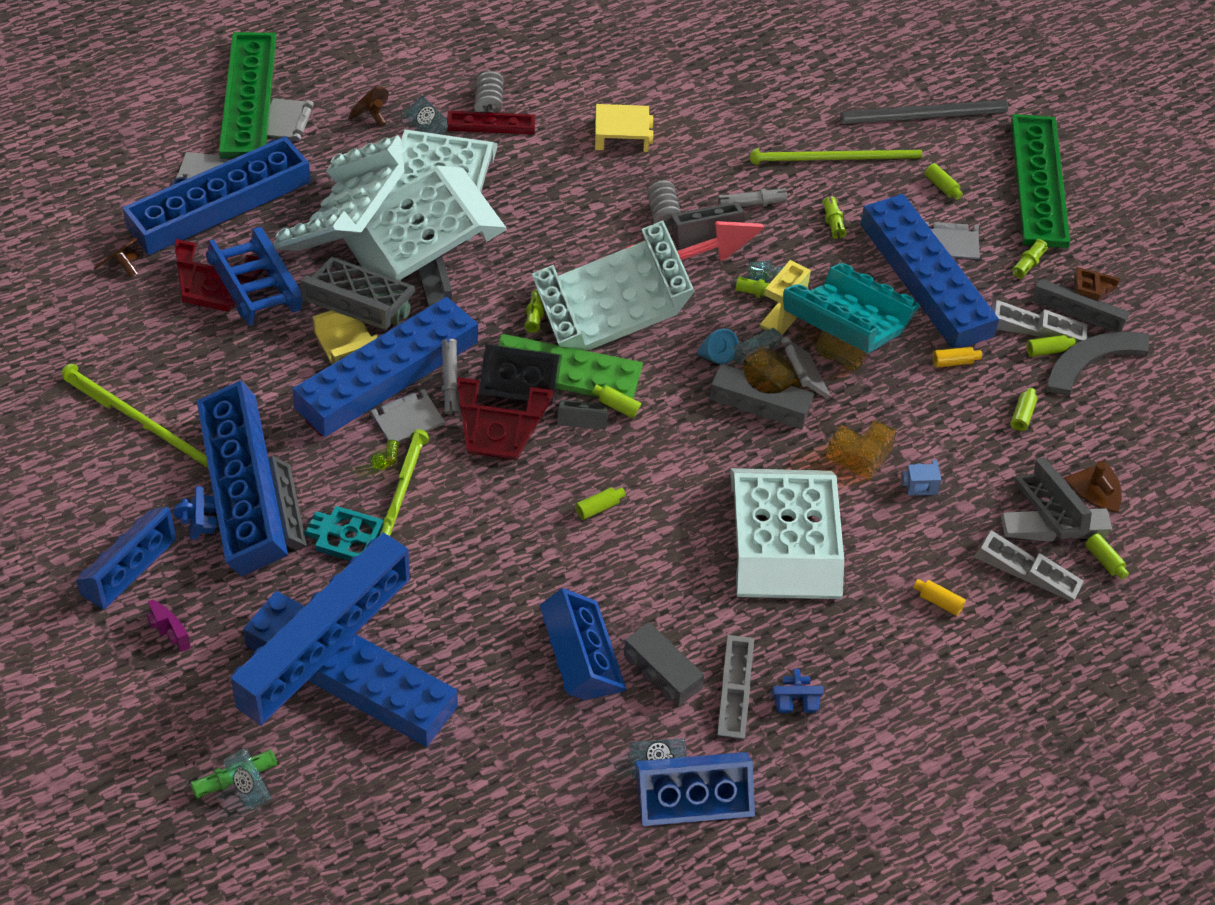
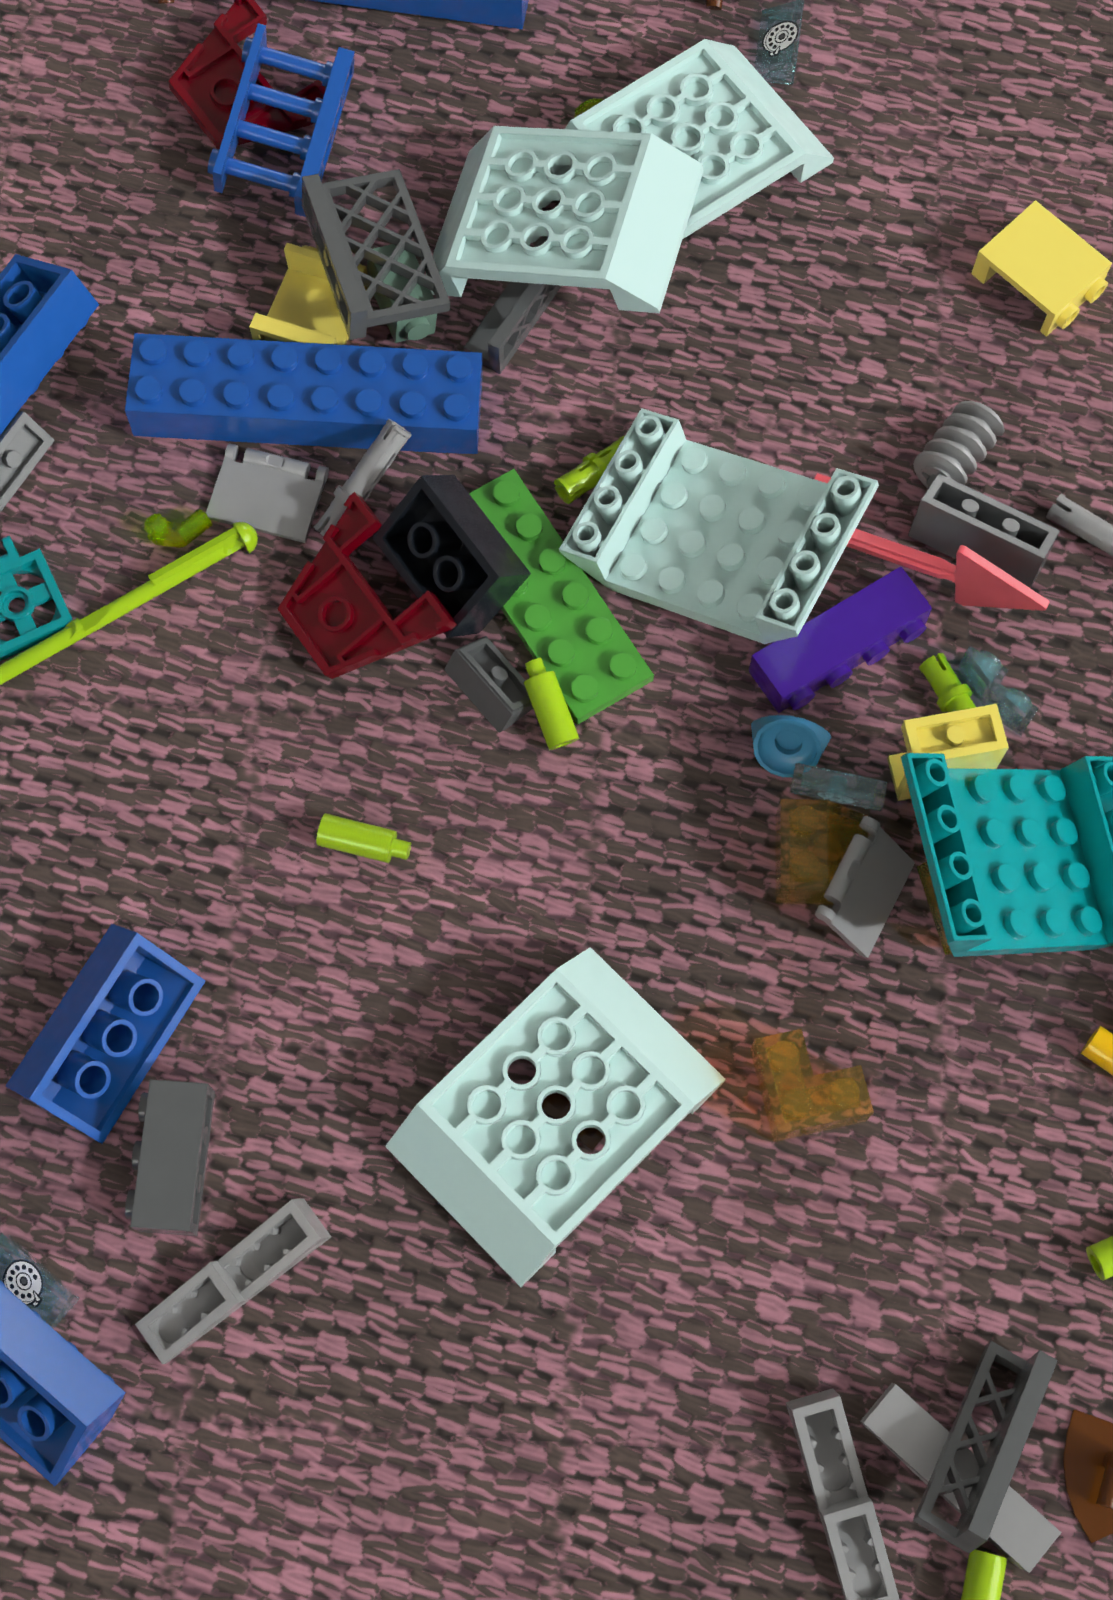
camera: 50 degrees right, 20 degrees up
(361, 185) = (507, 105): light aqua slope -> none
(489, 92) = (905, 66): light grey piece -> none
(491, 122) = (867, 116): dark red tile -> none
(693, 318) = (840, 640): none -> dark purple brick
(785, 694) = (295, 1367): blue hips -> none
(788, 406) = (779, 926): dark grey arch -> none
(922, 479) = (839, 1214): medium blue brick -> none
(940, 596) = (656, 1420): yellow cylinder -> none

